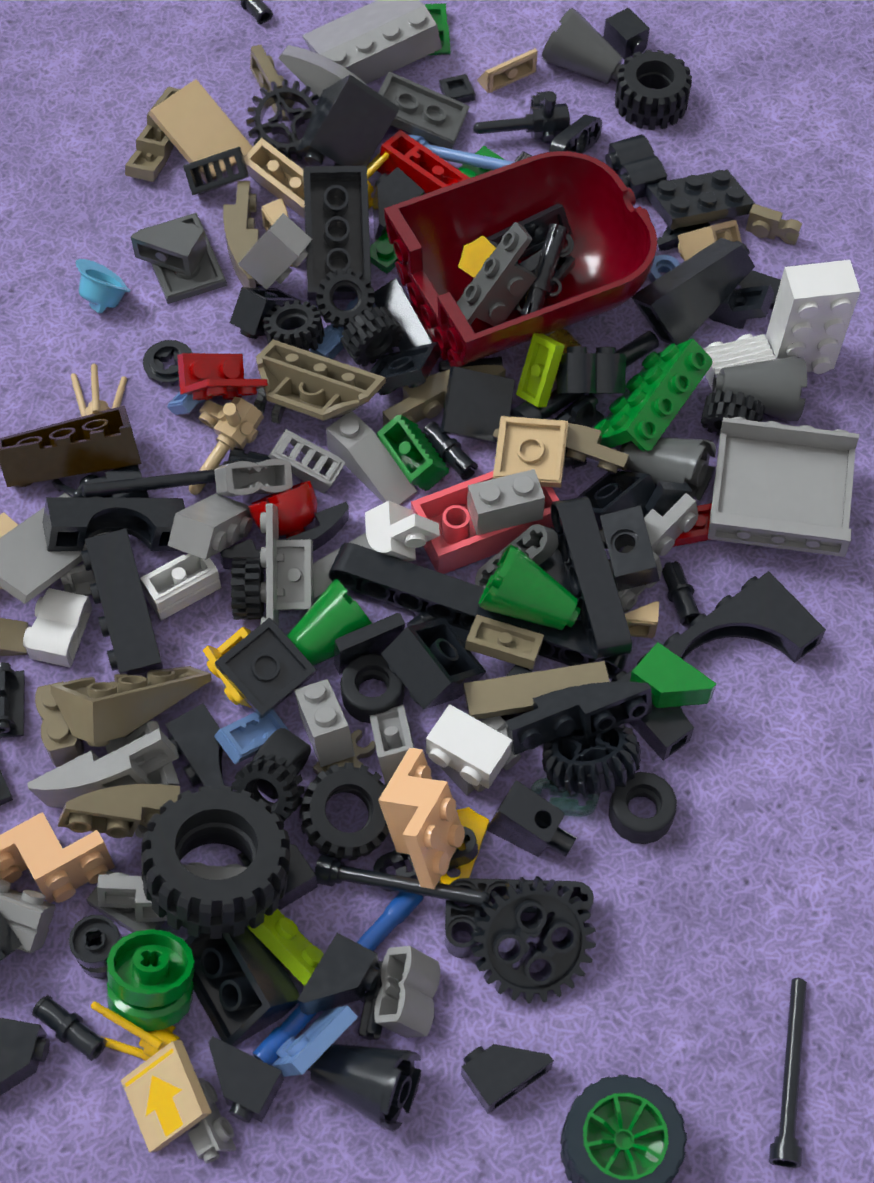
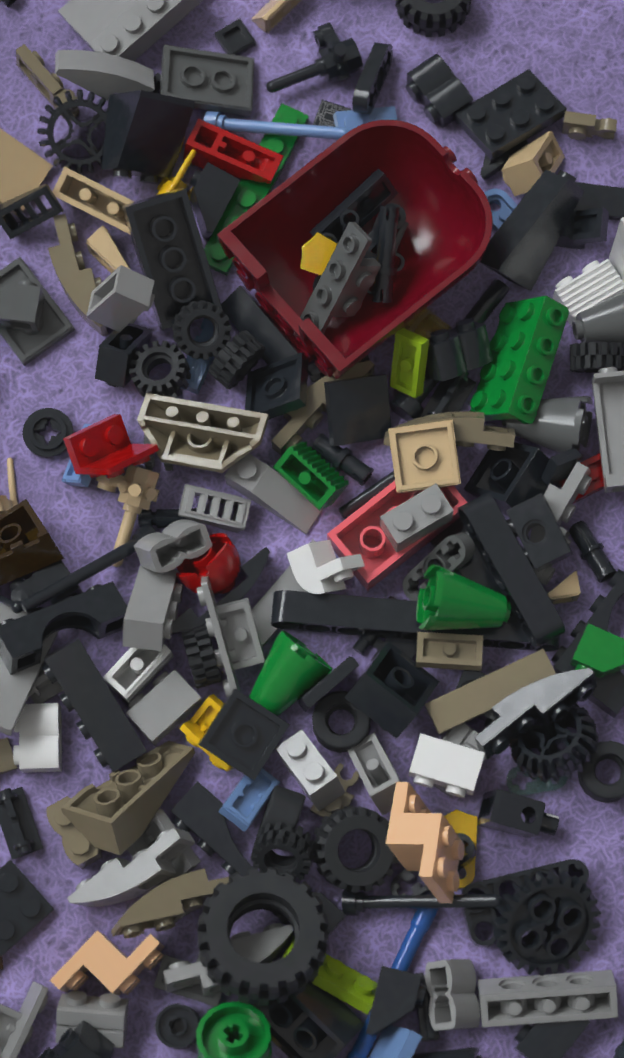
camera: 10 degrees left, 15 degrees up
(193, 627) = (163, 706): none -> light grey brick
(512, 1023) = (547, 998): none -> light grey brick

